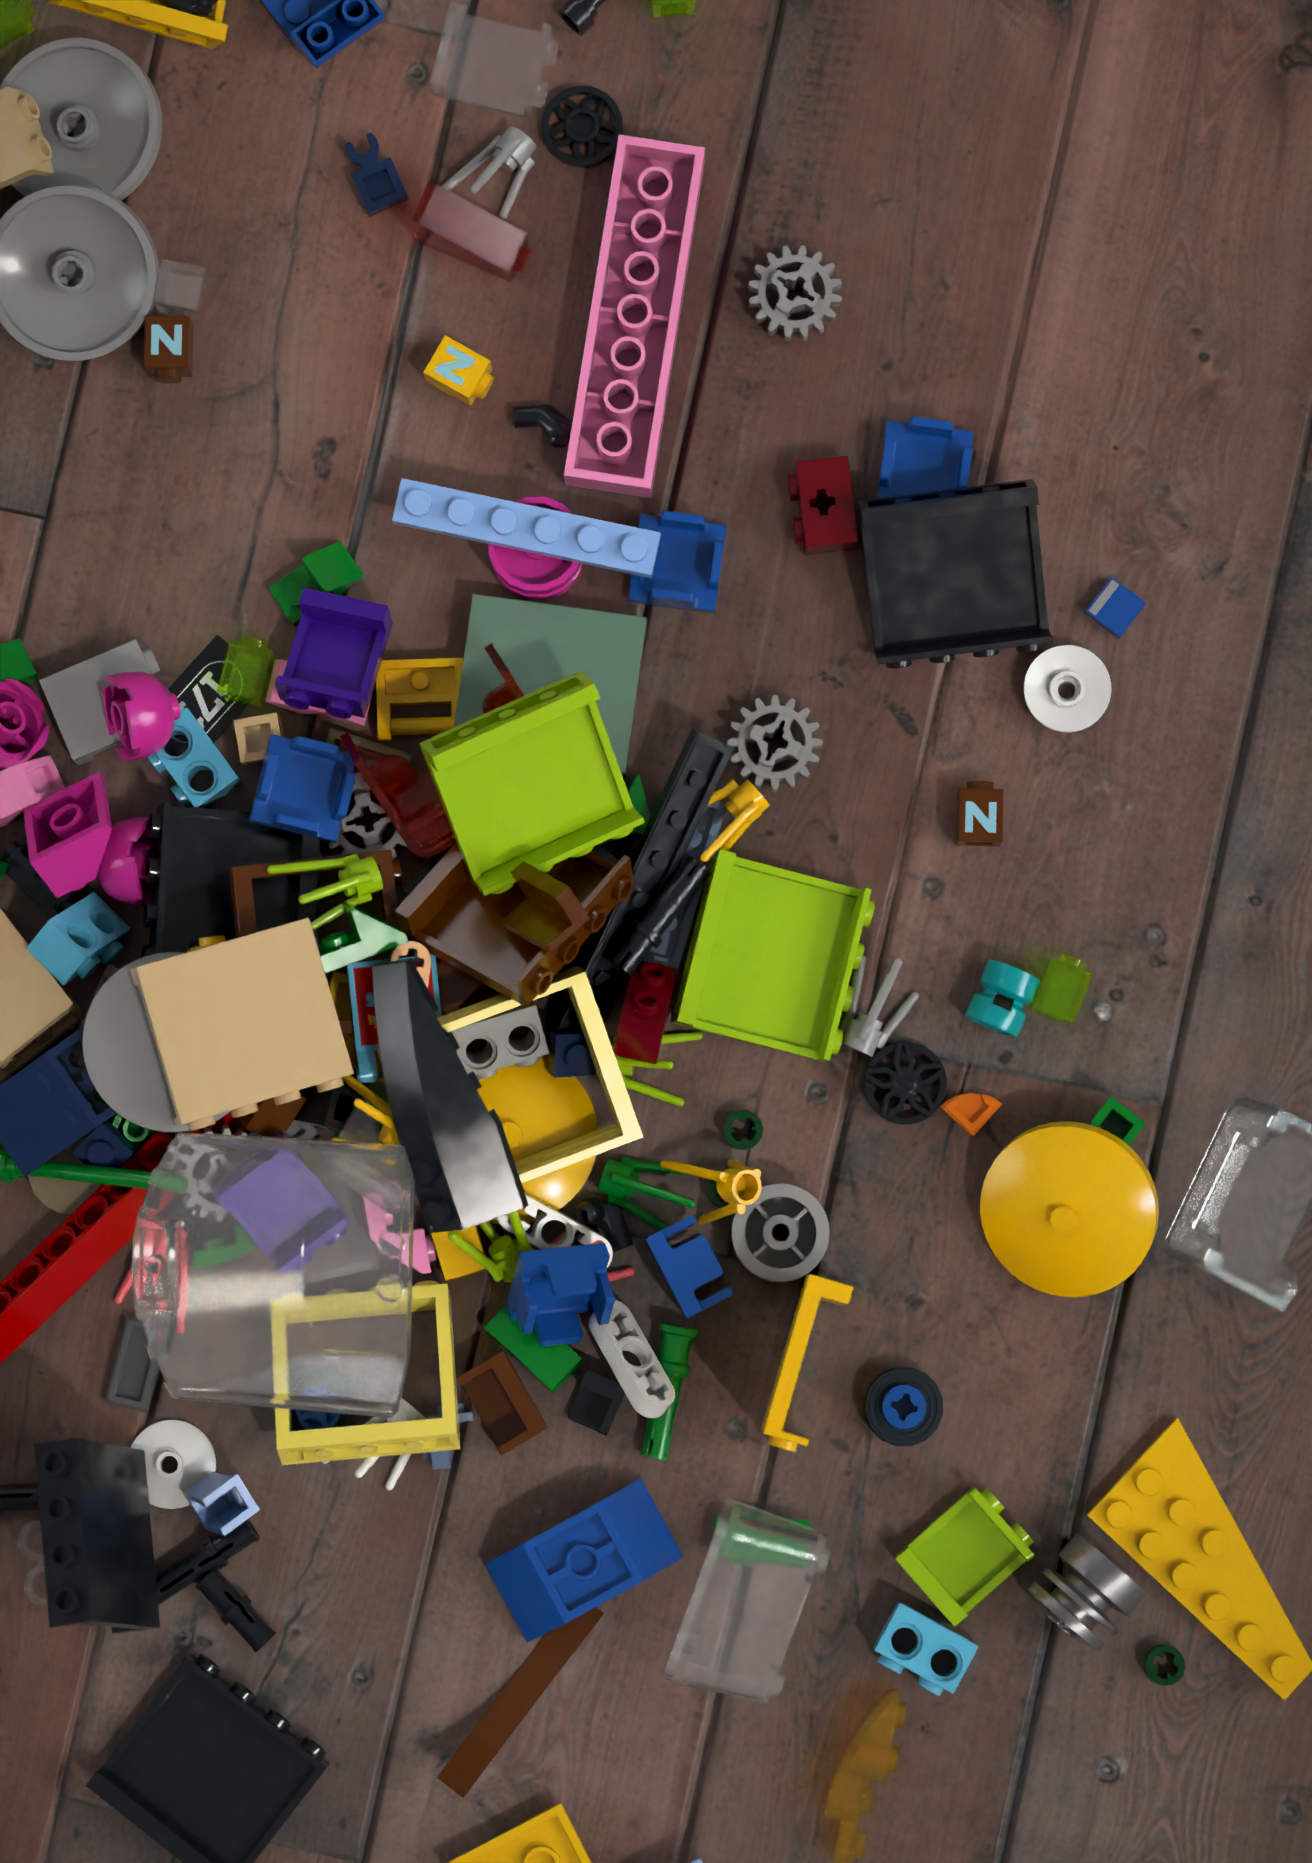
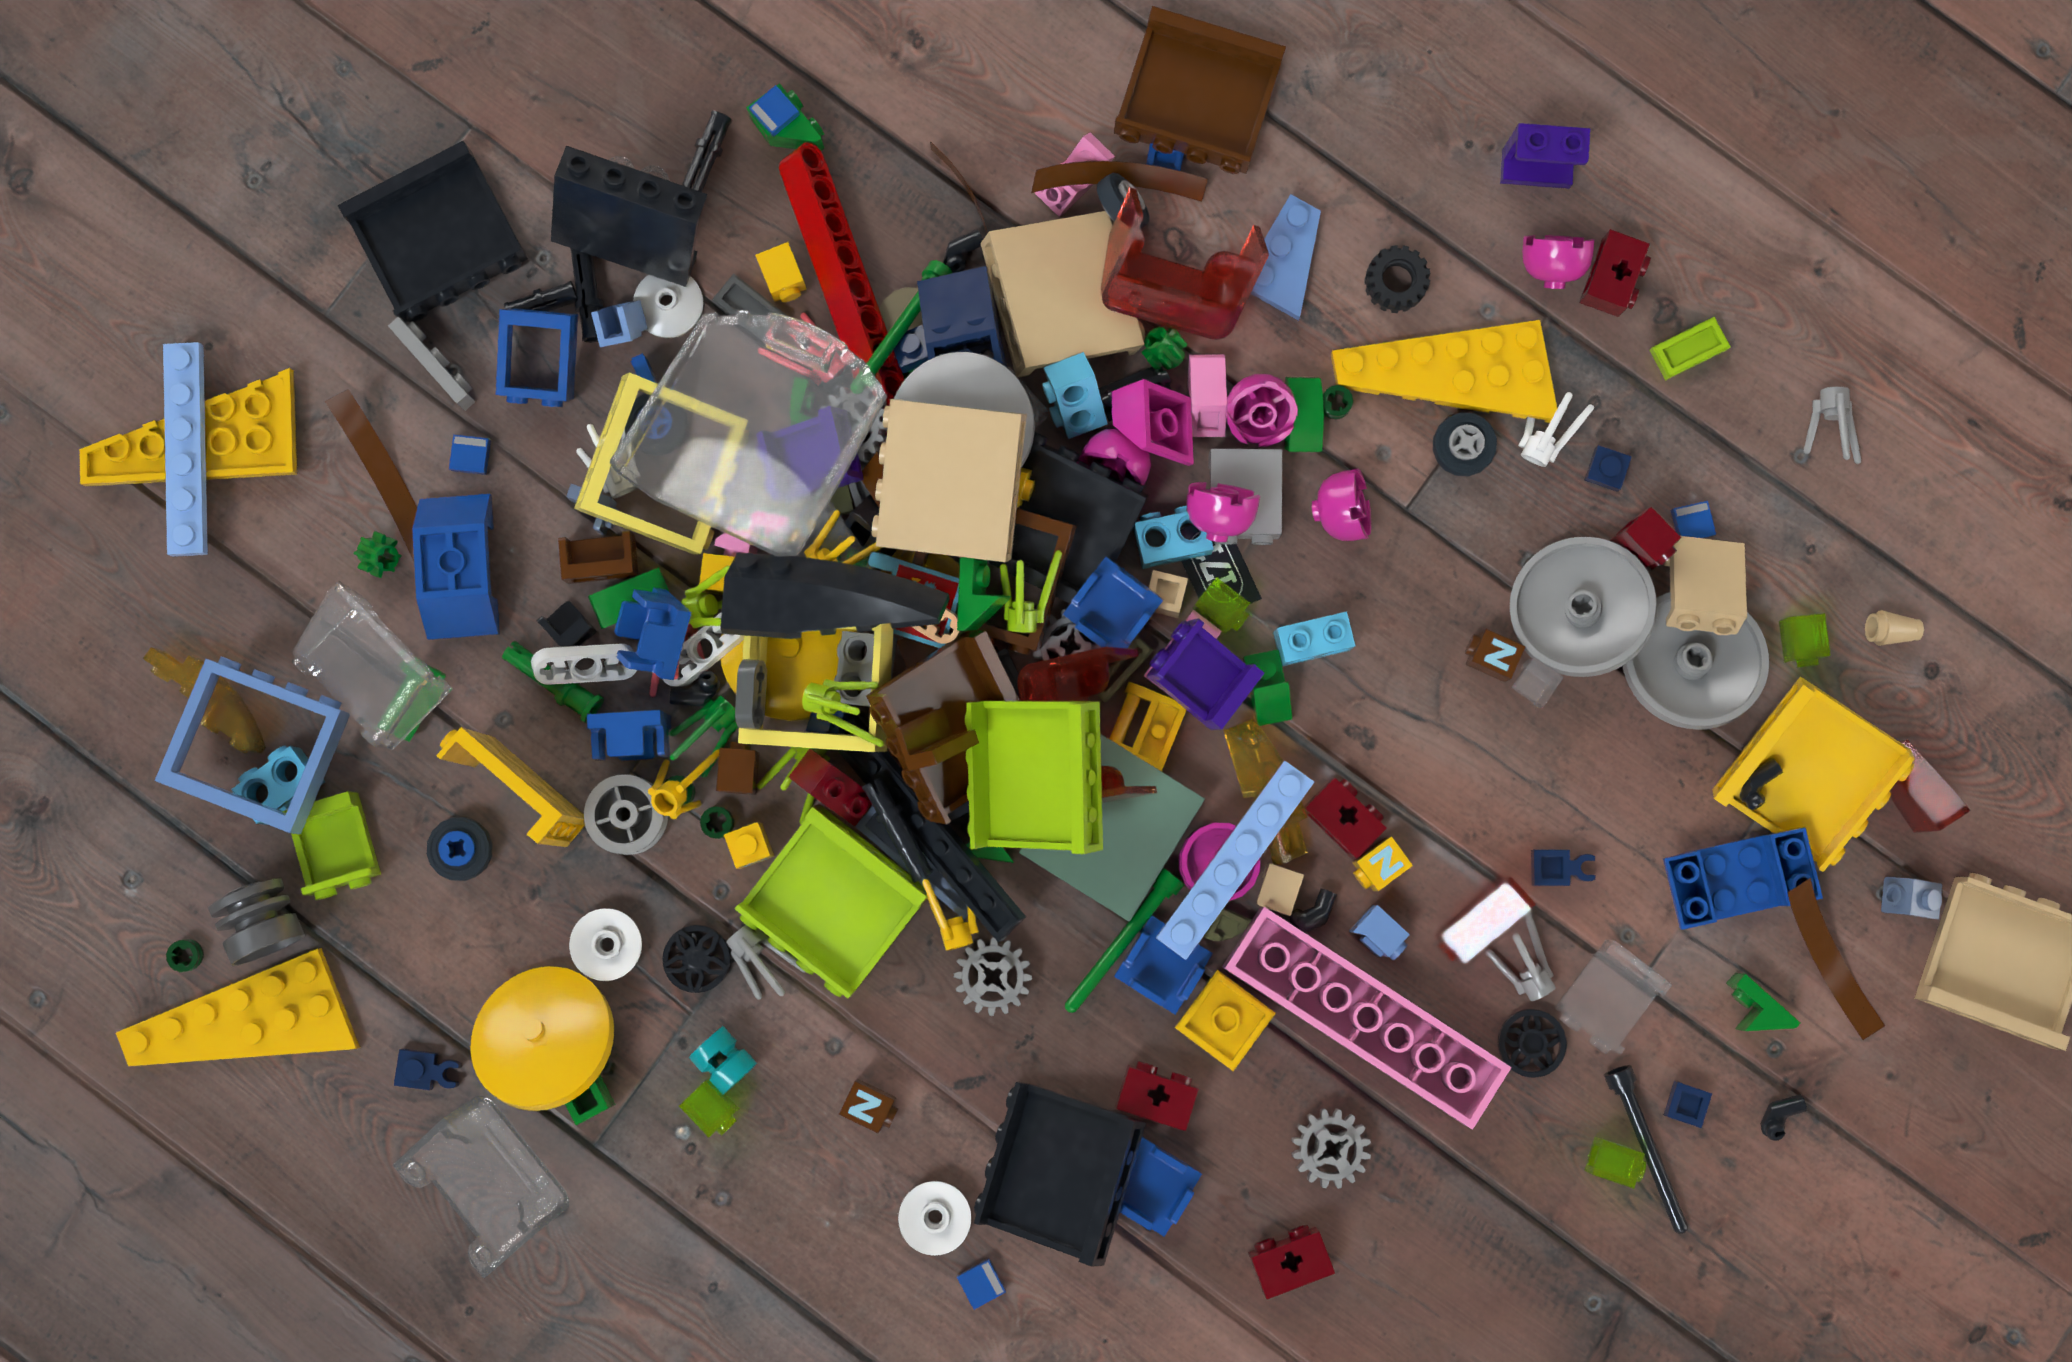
camera: 110 degrees right, 0 degrees up
(74, 585) = (1343, 506): none -> dark pink cylinder
(80, 1344) = (781, 273): none -> yellow brick
(238, 553) = (1314, 639): none -> medium azure brick
(259, 1595) = (517, 394): none -> blue window
(264, 1449) = (643, 368): none -> blue tile
(360, 1701) = (433, 361): none -> light grey plate
(412, 553) = (1255, 764): none -> clear yellow slope
(427, 459) = (1350, 837): none -> dark red brick
(449, 1610) = (469, 454): none -> blue tile
(535, 340) = (1380, 933): none -> medium blue window
(536, 470) = (1279, 889): none -> tan panel
(553, 1050) = (826, 702): none -> lime plant
(581, 1142) = (751, 694): none -> dark grey beam
(590, 597) = (1165, 886): none -> green piece
(601, 507) = (1226, 926): none -> olive tile
(612, 1658) = (377, 554): none -> green gear
(673, 1131) = (738, 769): none -> reddish brown brick
(707, 468) = (1225, 1020): none -> yellow plate
(752, 1079) = (749, 845): none -> yellow brick
(814, 1671) = (315, 769): none -> medium blue window
(933, 261) = (1309, 1267): none -> dark red brick
(958, 1184) = (587, 947): none -> white dish
(971, 1110) = (654, 999): orange tile -> none
(1169, 1336) = (420, 1069): none -> dark blue plate

